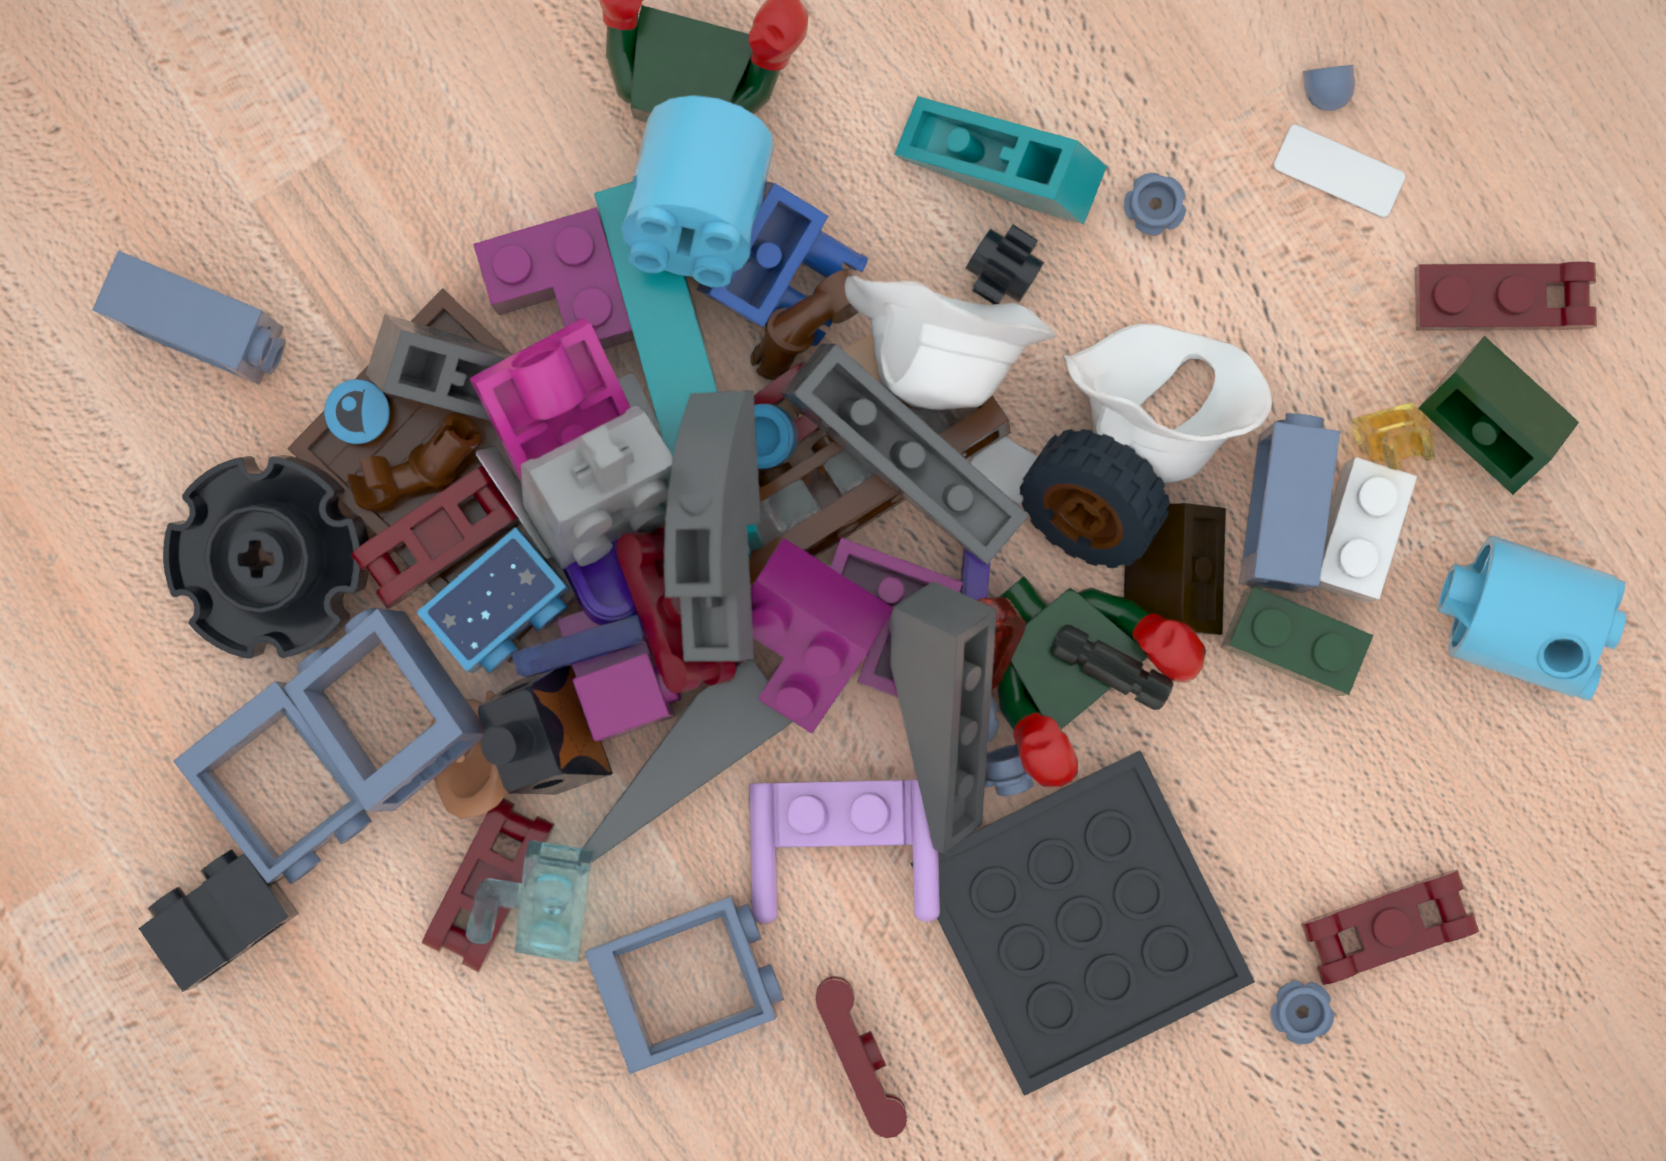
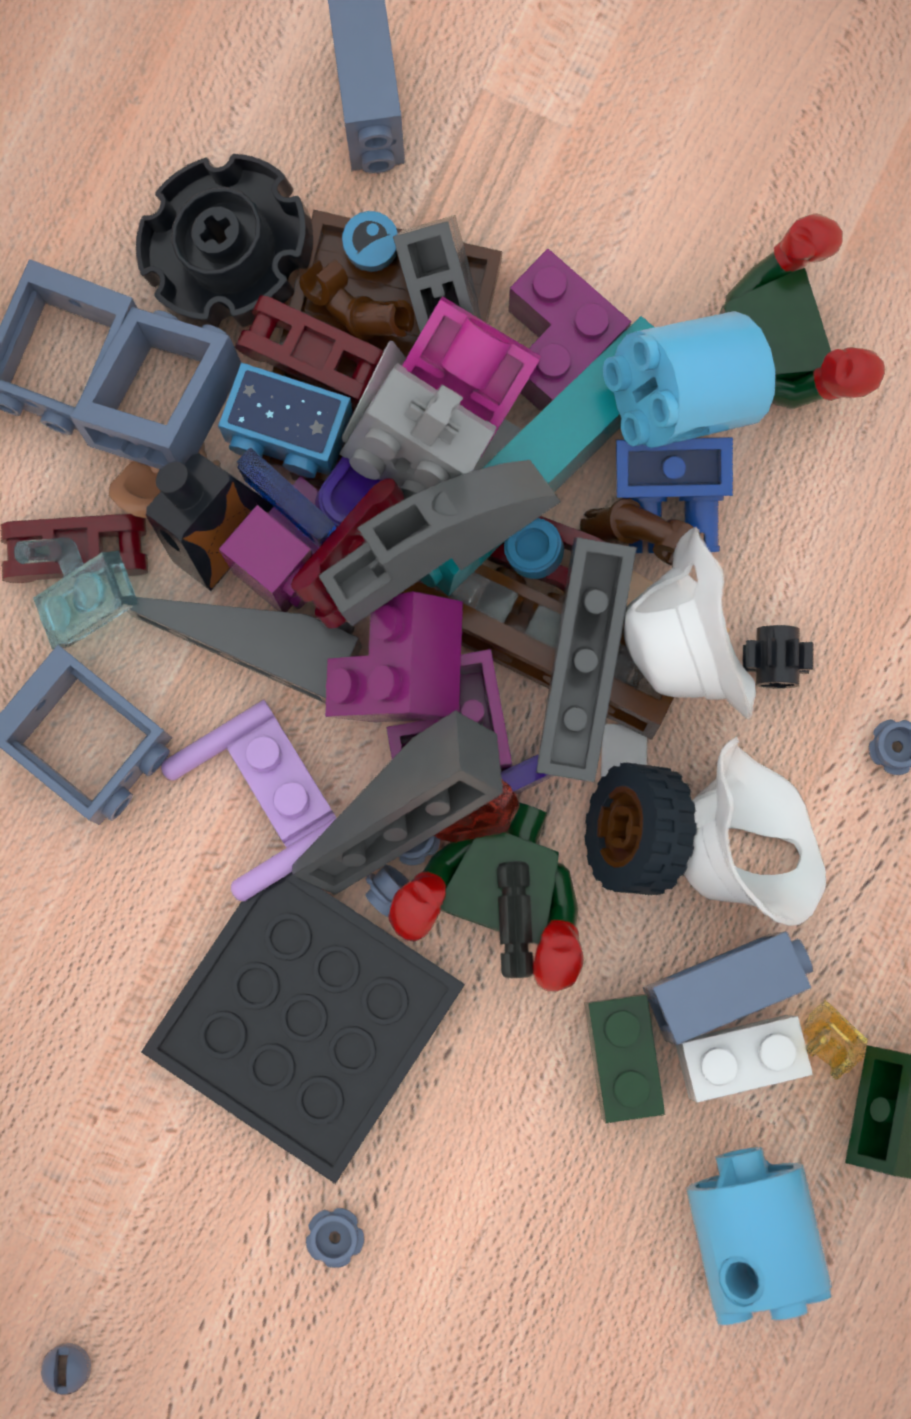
camera: 60 degrees right, 5 degrees down
(859, 1057) = (97, 905): dark red plate -> none
(1003, 158) = (859, 610): teal slope -> none
(1183, 569) = (627, 934): dark brown panel -> none
(1389, 927) = (443, 1268): dark red plate -> none

